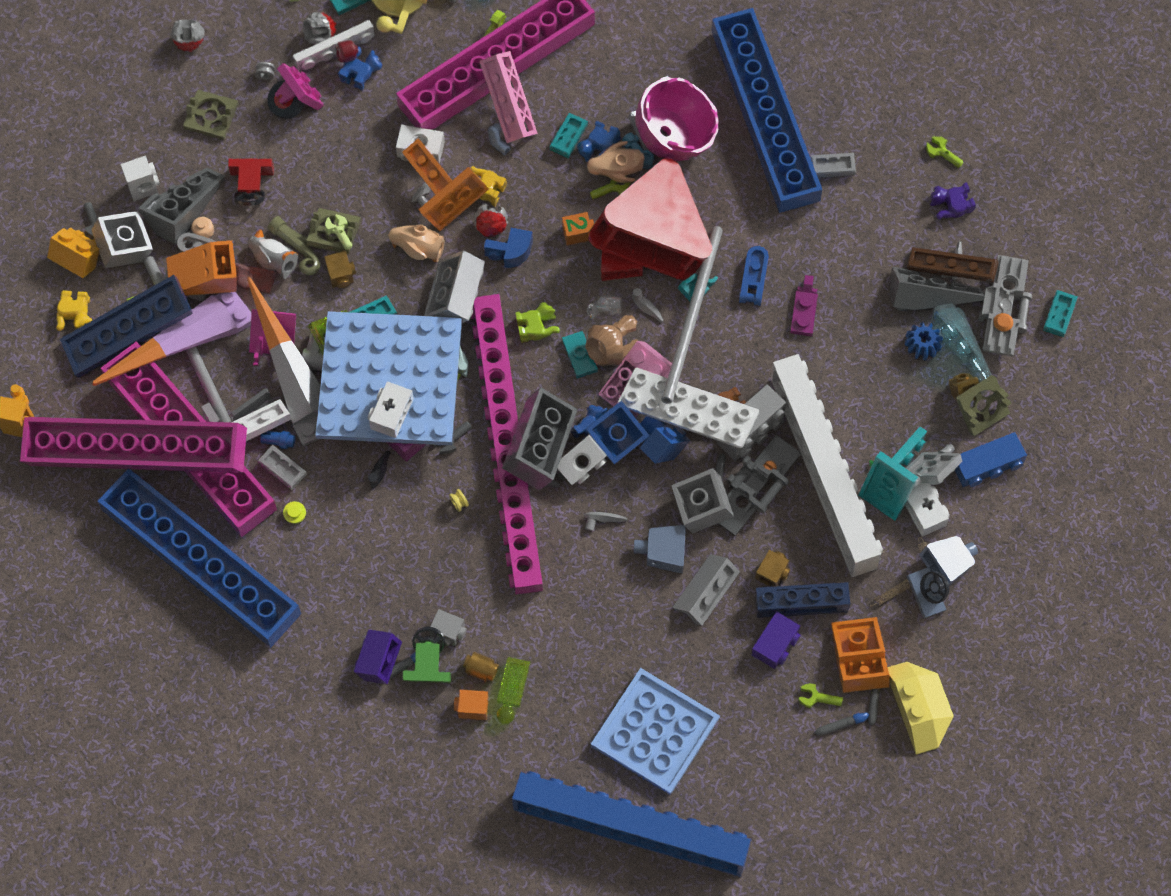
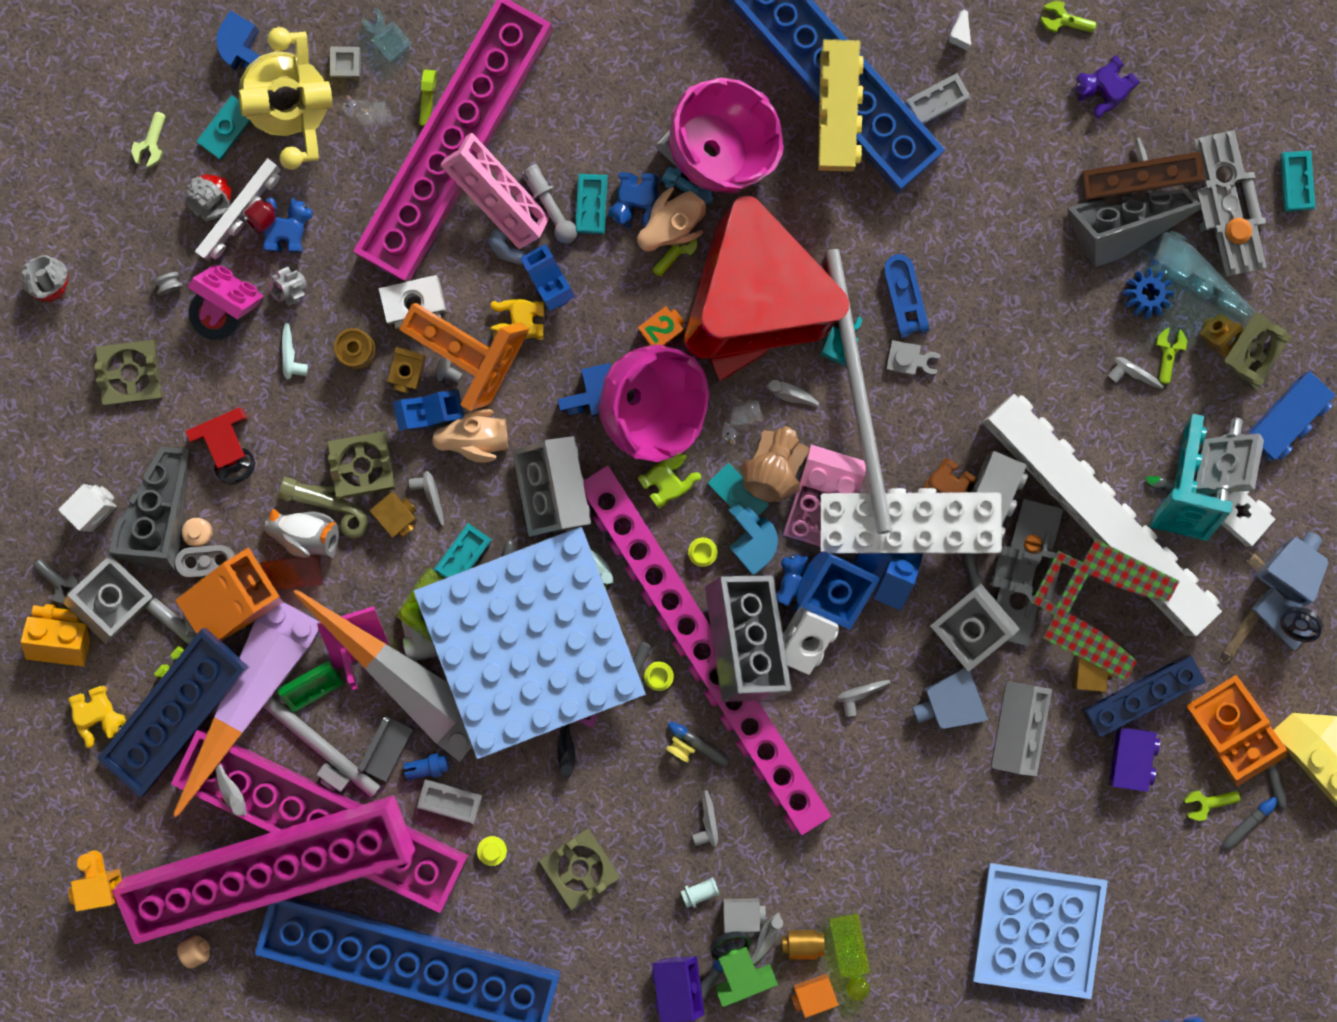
camera: 20 degrees left, 20 degrees up
(56, 491) = (193, 951): none -> light nougat piece
(137, 388) = (230, 792): none -> light grey bar
(227, 353) = (310, 686): none -> green plate
(264, 419) = (395, 762): white plate -> none
(320, 146) = (289, 366): none -> light aqua bar
(339, 230) = (371, 468): yellowish green bar -> none
(342, 102) = (288, 286): none -> light grey gear
(350, 566) = (572, 897): none -> olive piece
(366, 156) = (355, 348): none -> pearl gold wheel
(371, 262) = (428, 484): none -> light grey bar
(390, 421) = (565, 709): white brick -> none
(394, 214) = (428, 410): none -> blue brick
(396, 191) = (415, 361): none -> pearl gold brick
(424, 601) = (699, 892): none -> light aqua pin
(448, 24) = (368, 115): none -> clear animal
(455, 558) = (709, 821): none -> light grey bar
(459, 653) = (767, 936): none -> light grey bar
(467, 448) = (658, 676): none -> neon yellow plate
(473, 504) = (708, 750): none -> dark grey piece
(490, 222) = (553, 371): red piece -> none
(516, 165) = (547, 277): none -> blue brick
(536, 380) = (702, 552): none -> neon yellow plate
(539, 115) = (565, 230): none -> light grey pin
(563, 263) = (666, 403): none -> dark pink piece
(578, 387) = (759, 541): none -> dark azure brick
(738, 316) = (907, 357): none -> light grey plate
(762, 128) = (839, 105): none -> light yellow wedge
(804, 308) = (984, 311): magenta hinge -> none
(817, 495) = (1111, 567): none -> piece
(866, 128) = (961, 33): none -> white slope
(892, 388) = (1136, 372): none -> light grey bar
(922, 387) = (1169, 353): none -> lime bar

